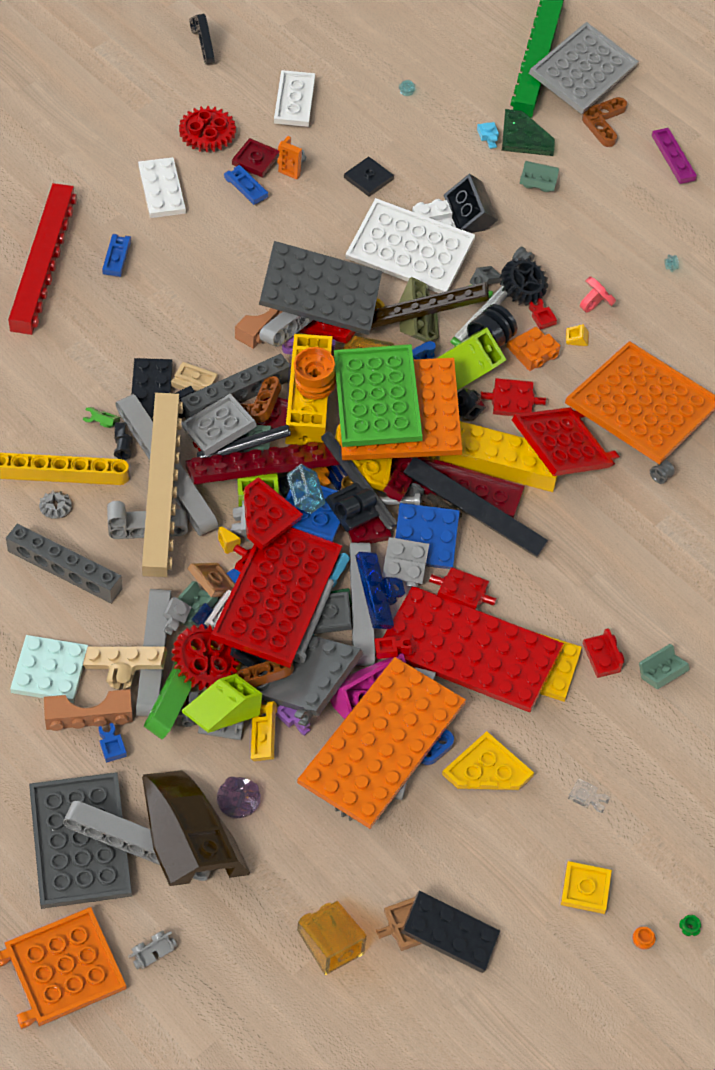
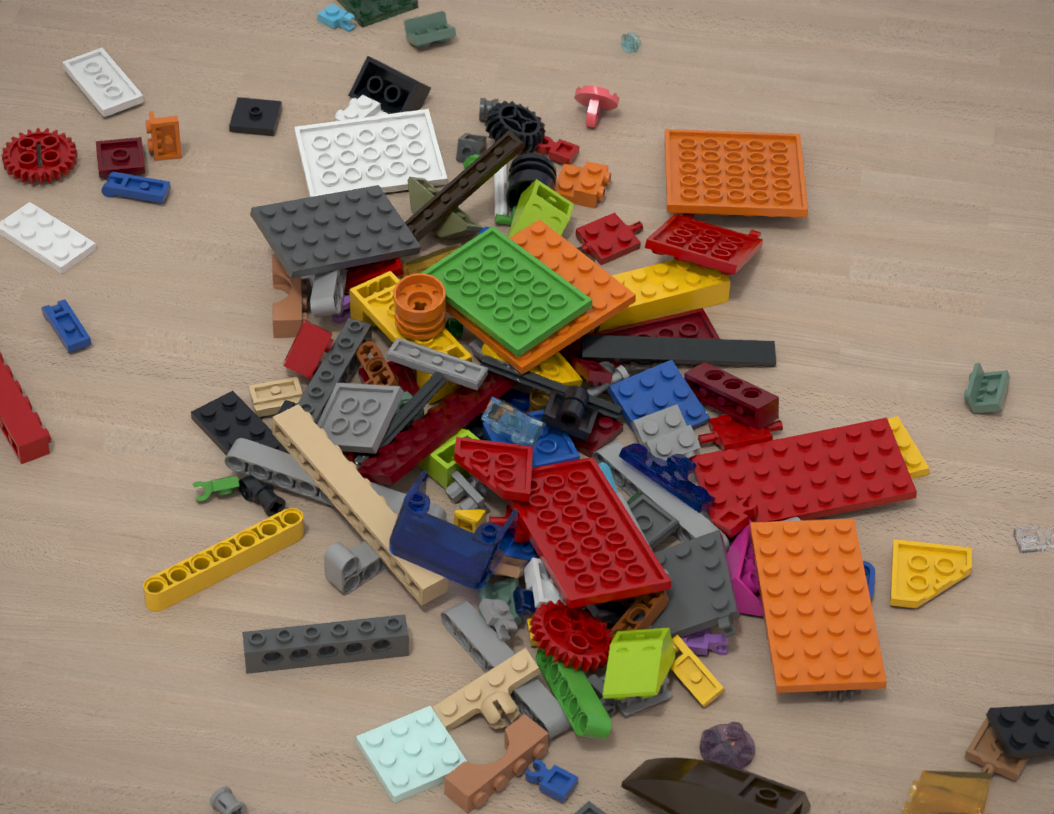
camera: 35 degrees left, 10 degrees down
(48, 509) = (252, 605): light grey gear -> none
(180, 563) = (446, 547): none -> clear blue windscreen
(235, 358) = (308, 349): none -> red brick
(296, 419) = (433, 361): none -> light grey tile
(407, 88) = (209, 16): clear light blue plate -> none
(476, 560) = (733, 395): none -> dark red brick
(577, 335) = (609, 152): yellow slope -> none
(604, 654) = (923, 409): red bracket -> none
(662, 472) = (811, 226): dark grey wheel -> none

